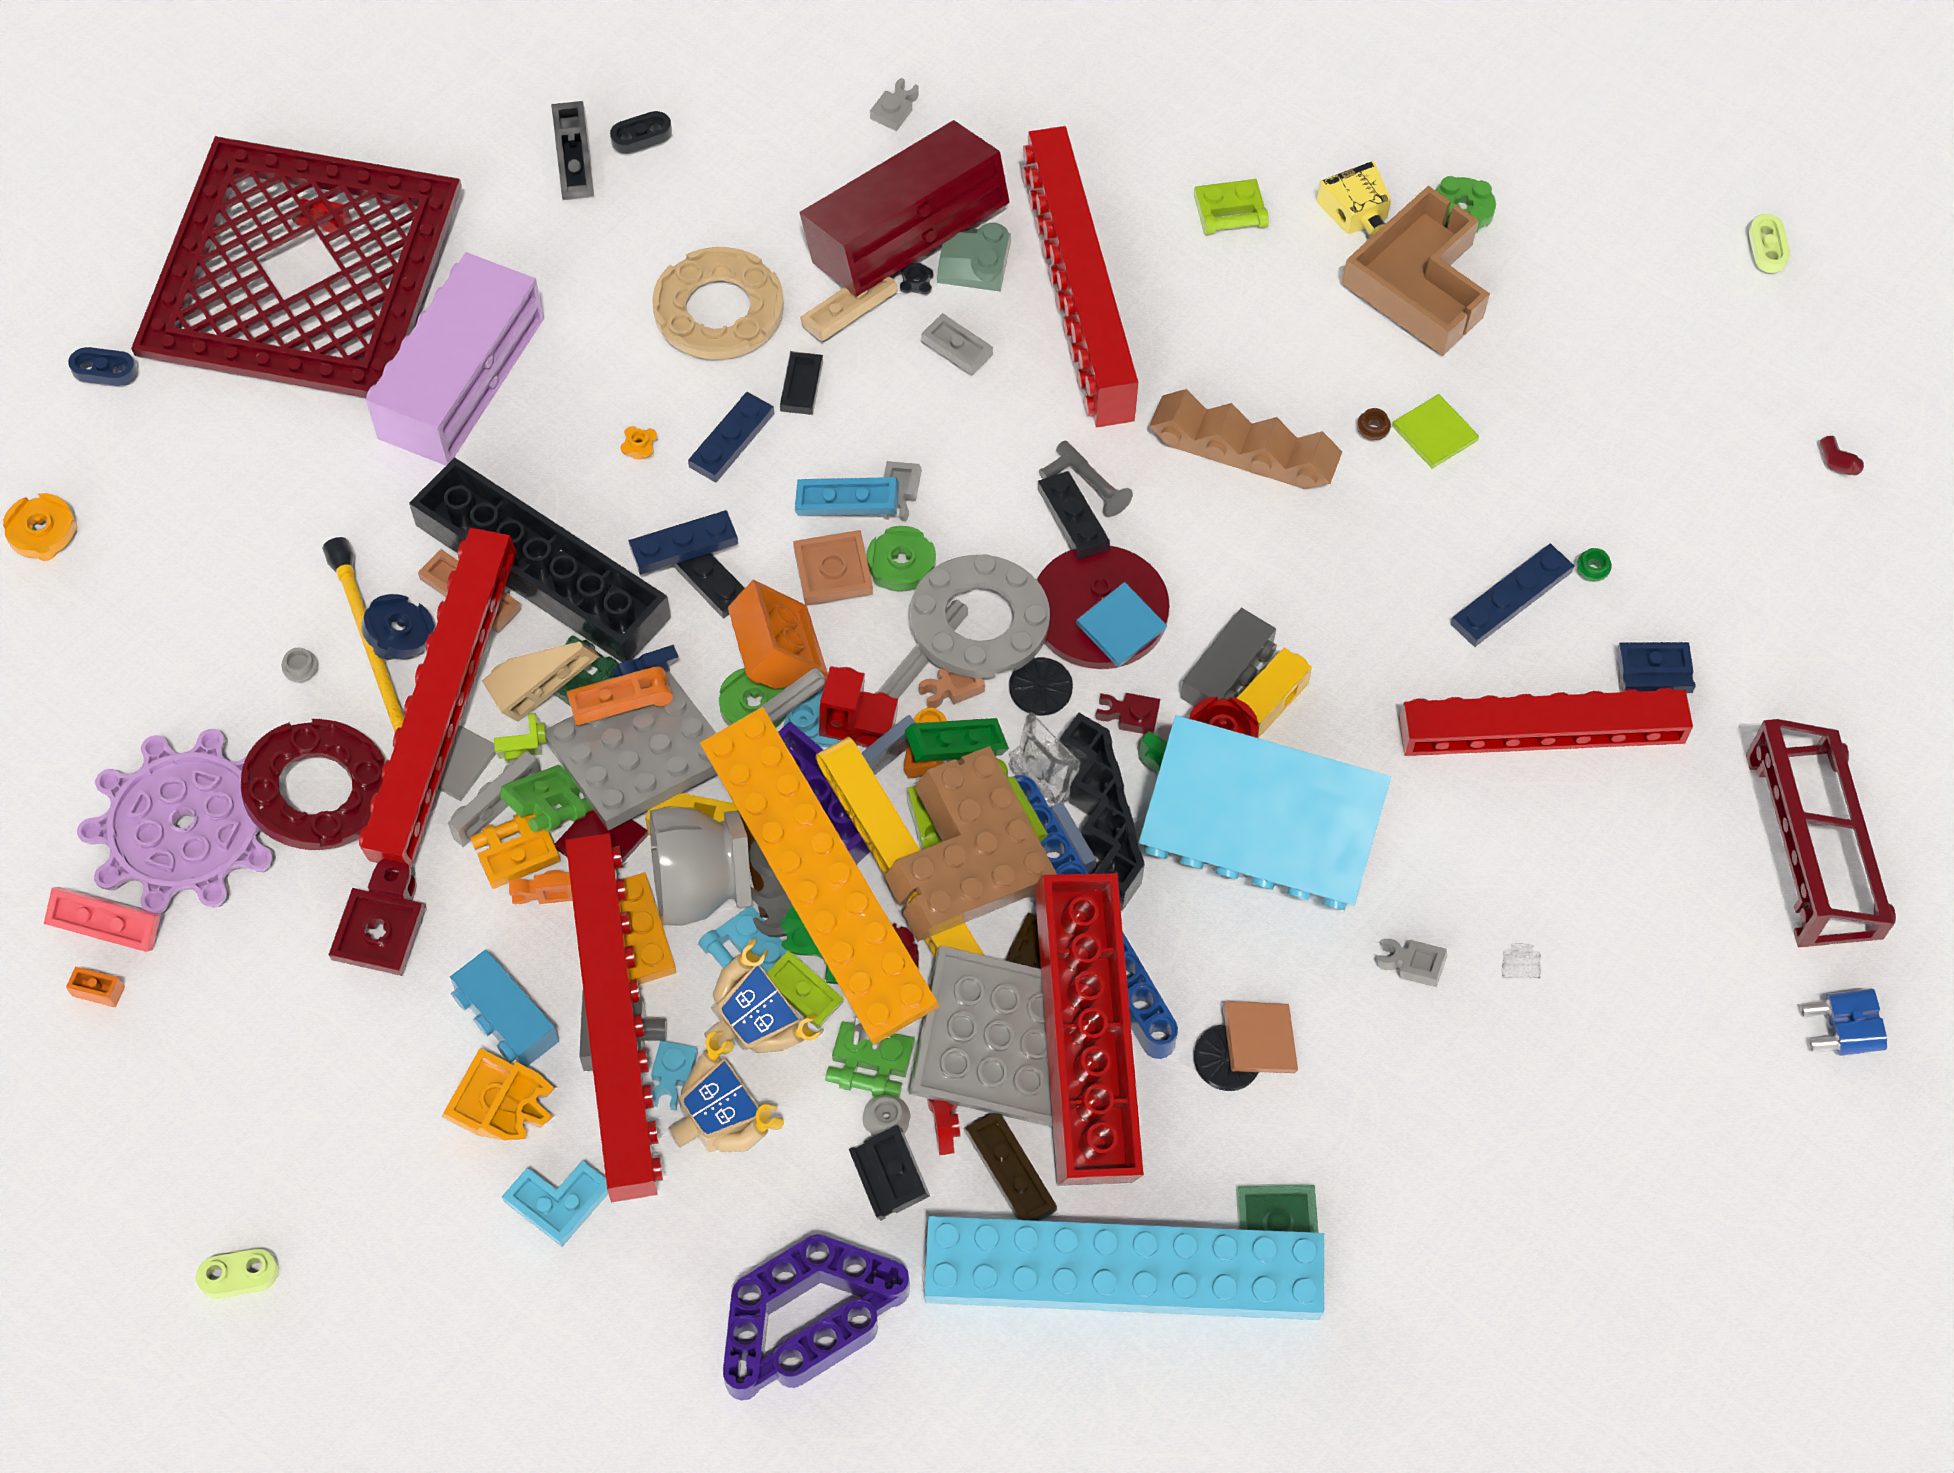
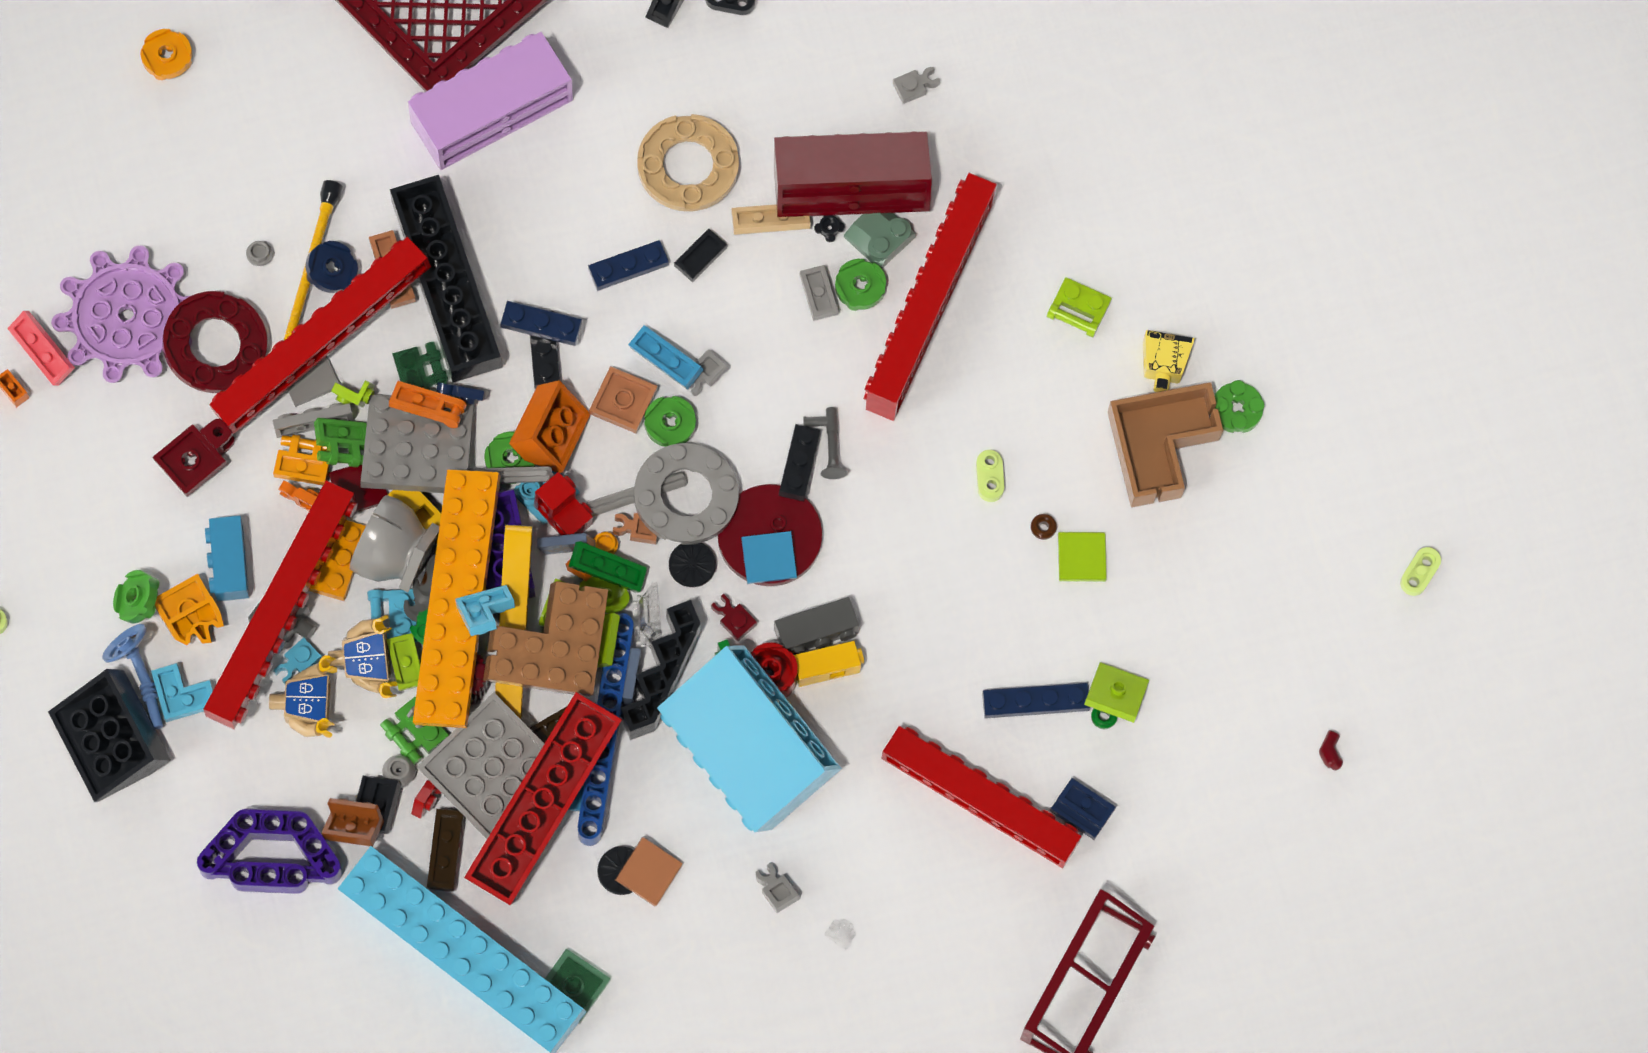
camera: 30 degrees right, 10 degrees up
(438, 1117) = (144, 588): none -> bright green plate
(458, 1188) = (130, 650): none -> medium blue dish
(501, 1308) = (108, 734): none -> black slope
(532, 678) = (380, 357): tan slope -> none
(635, 449) = (567, 239): light orange plate -> none
(864, 854) = (478, 608): none -> medium azure plate
(882, 1206) = (352, 822): none -> dark orange bracket
(993, 327) = (858, 298): none -> bright green plate
(1257, 447) = (940, 475): medium nougat brick -> none
(1277, 406) = (990, 474): none -> yellowish green plate
(1589, 532) = (1116, 692): none -> lime plate

